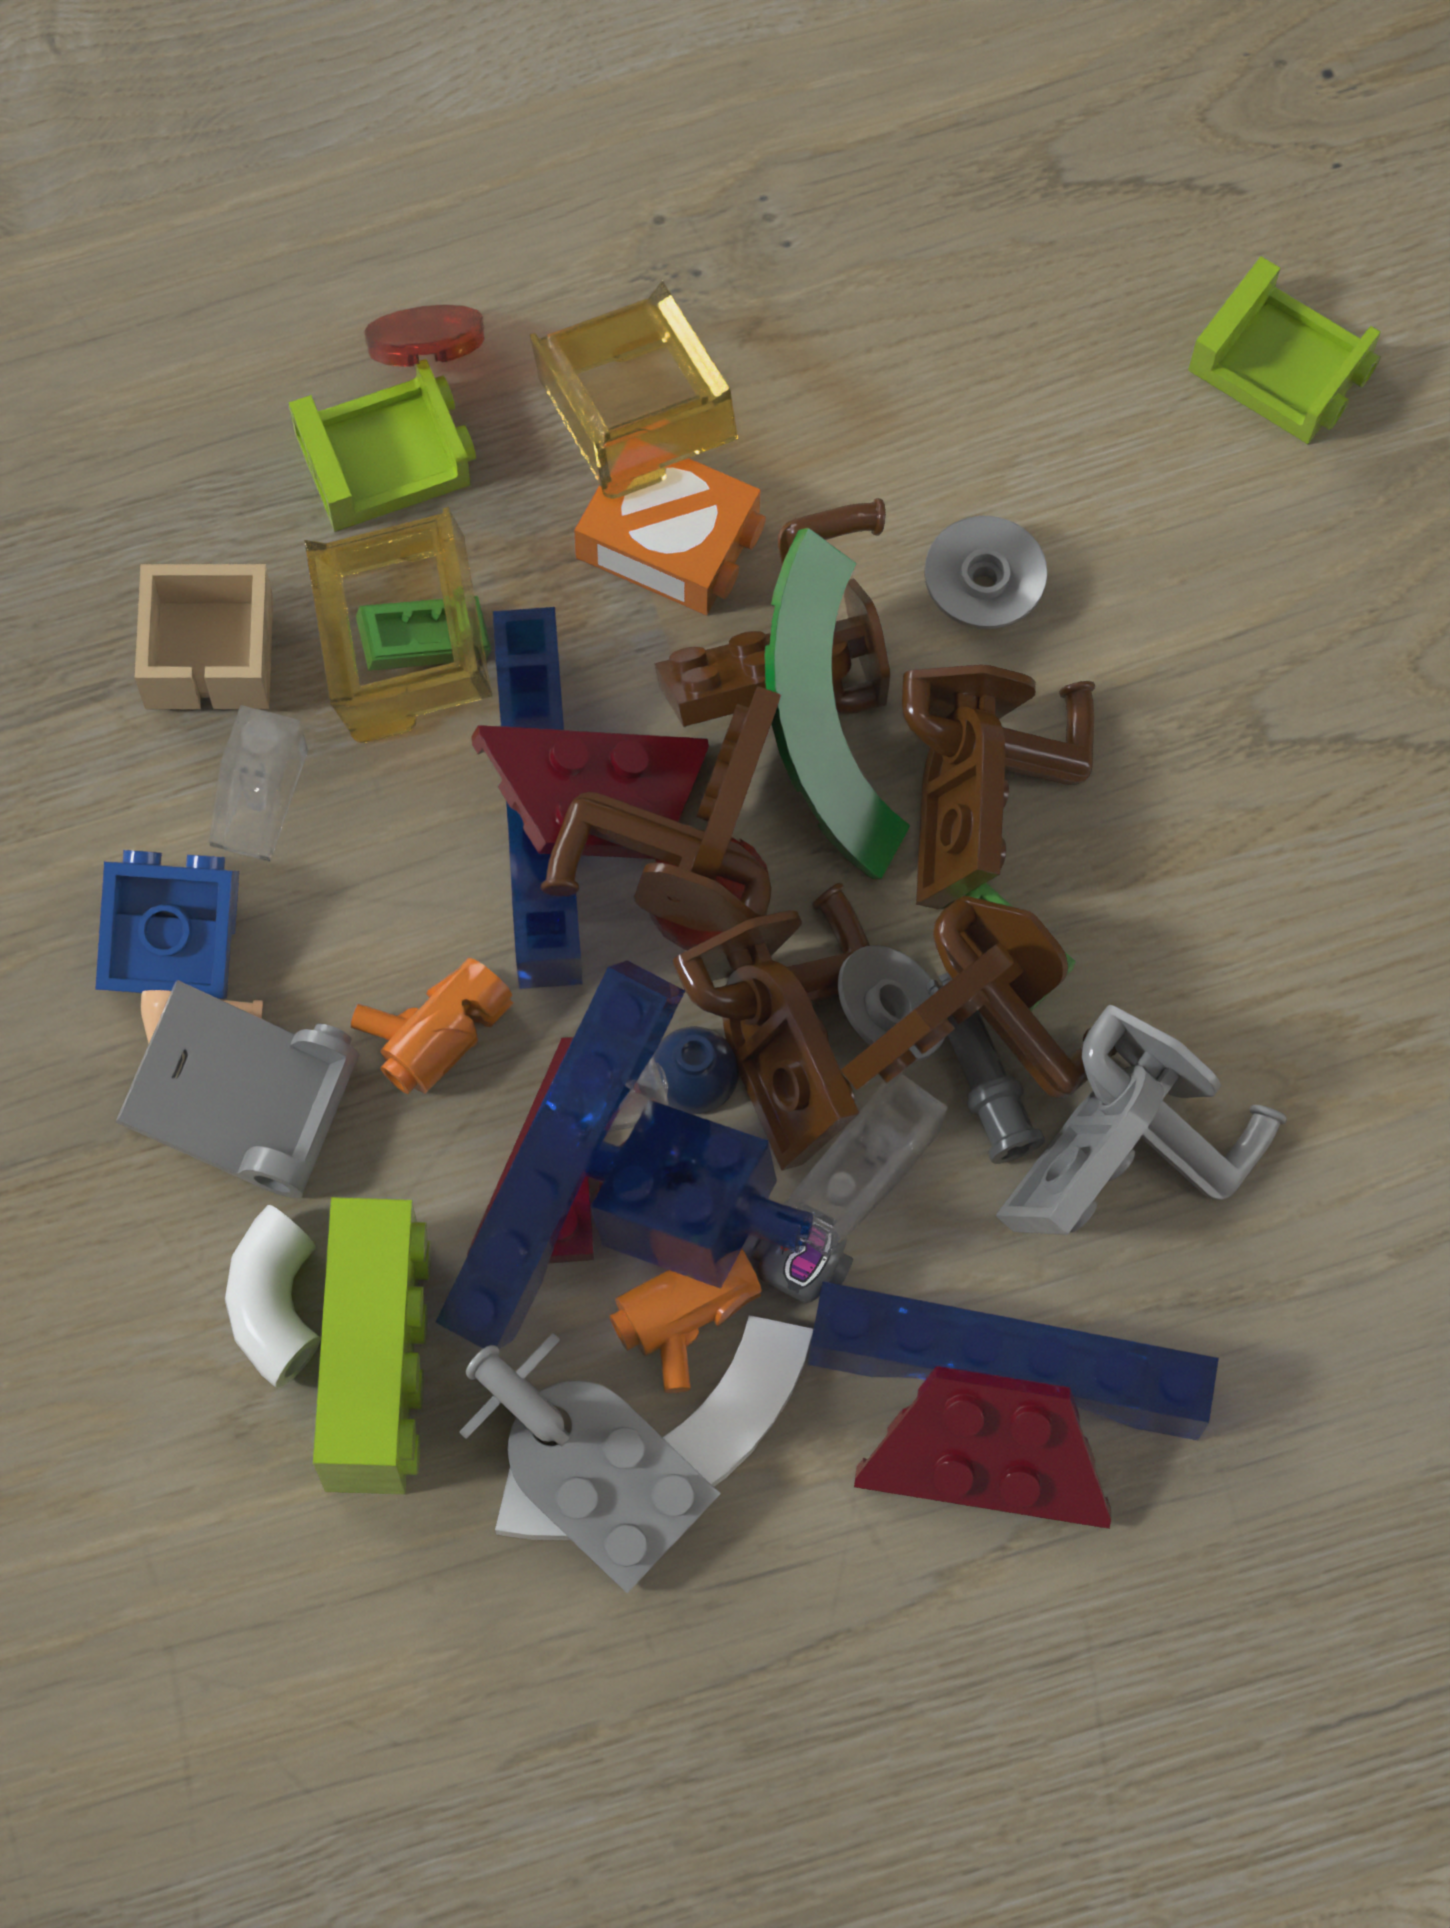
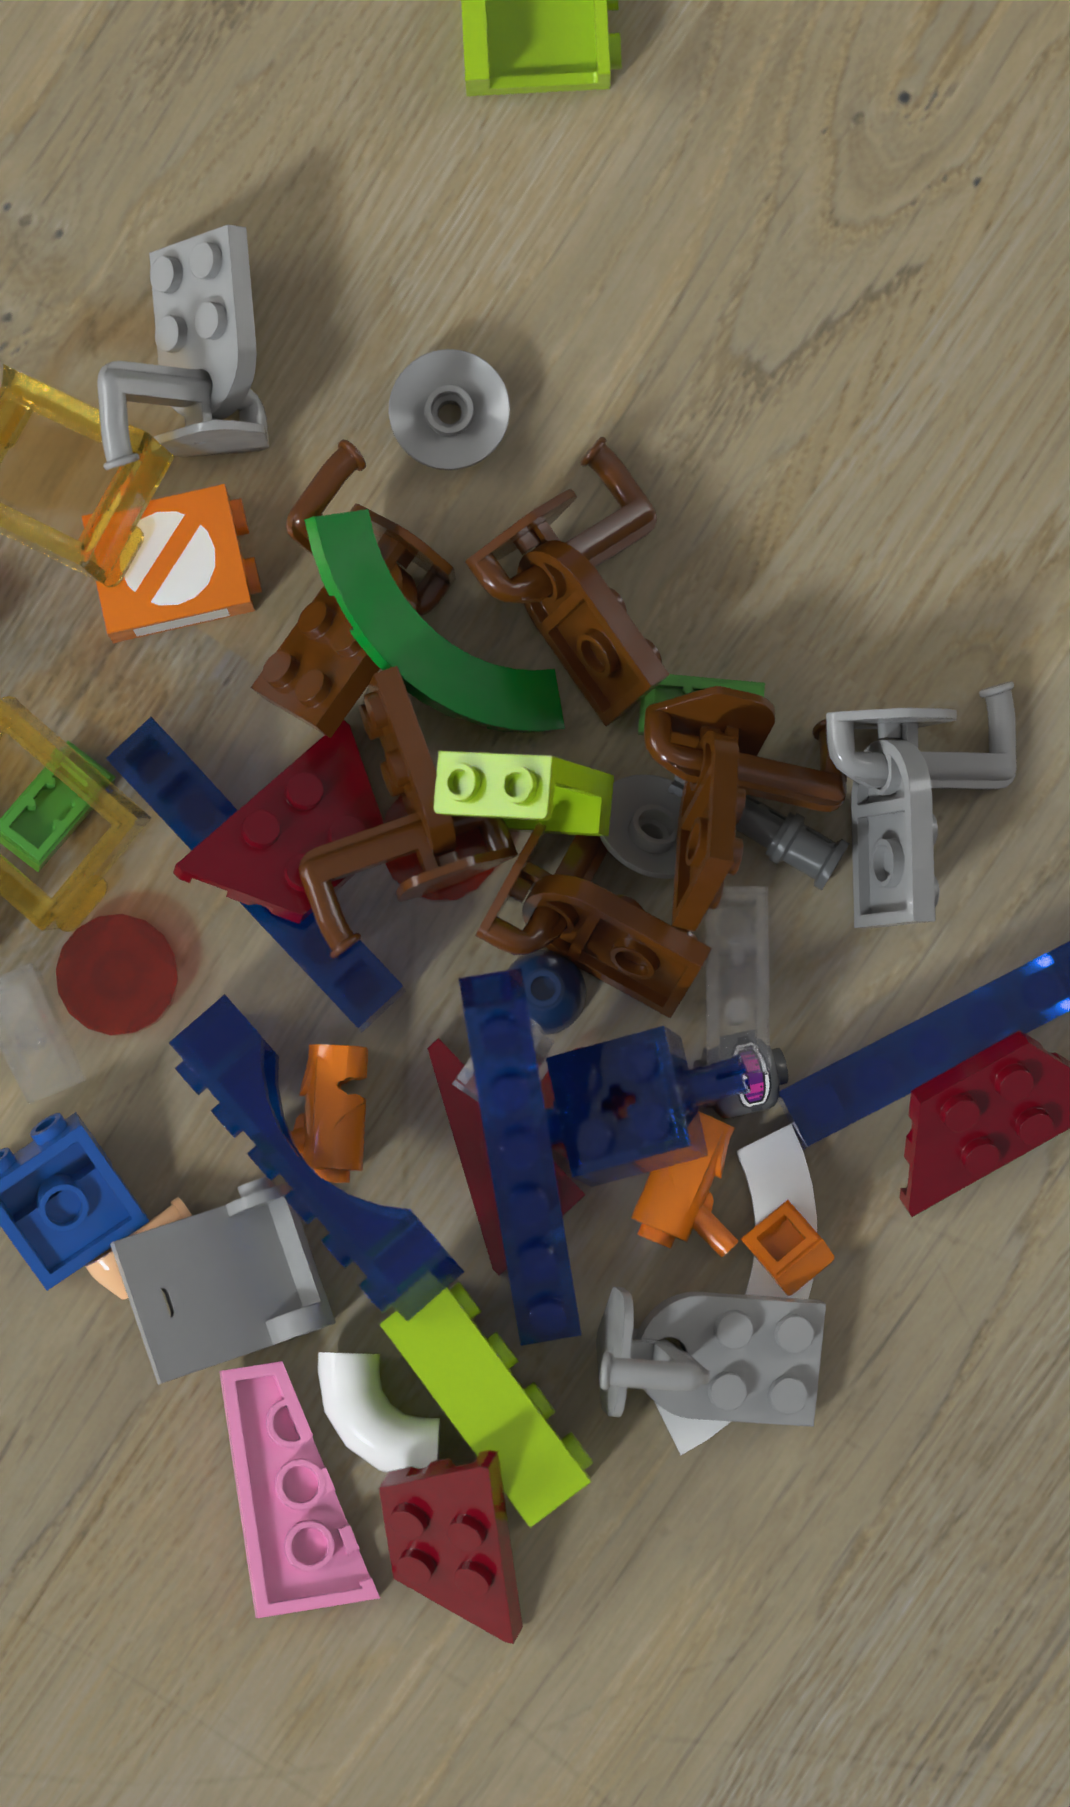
camera: 30 degrees left, 15 degrees up
(134, 1318) = (290, 1516): none -> bright pink wing
(244, 1439) = (454, 1540): none -> dark red wing
(363, 797) = (117, 975): none -> clear red tile
(390, 1129) = (388, 1243): none -> clear blue arch
(727, 1428) = (788, 1248): none -> orange slope
(816, 877) = (525, 792): none -> lime panel
(818, 398) = (202, 353): none -> light grey plate

